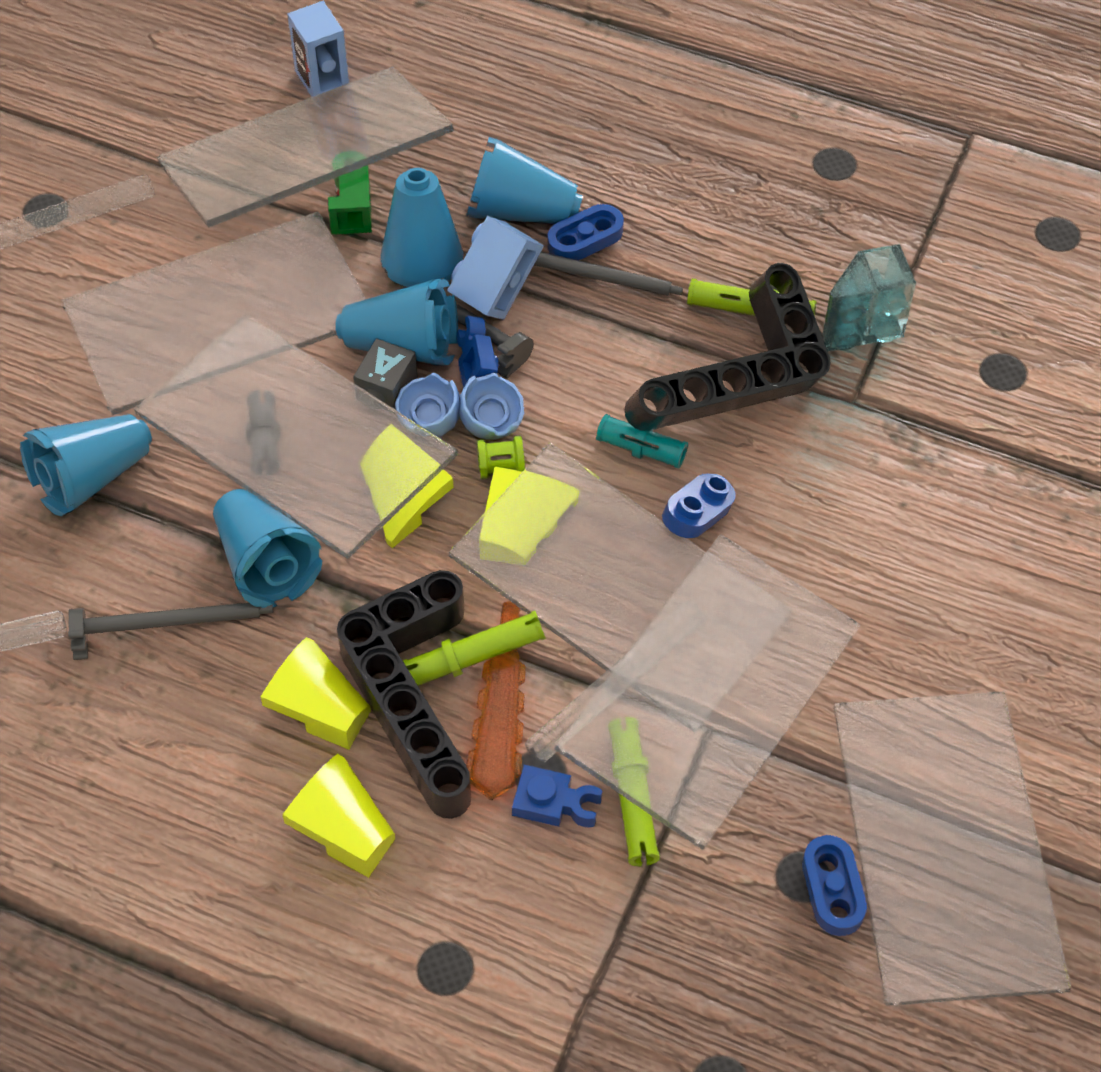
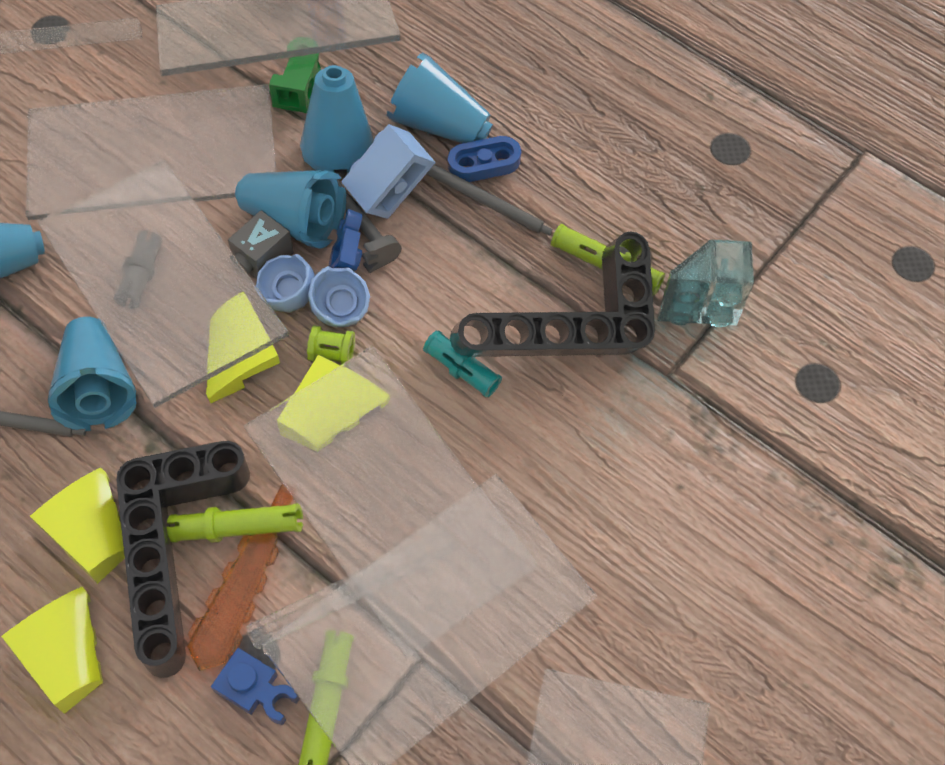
camera: 15 degrees right, 5 degrees up
(698, 505) = (492, 438): blue plate -> none

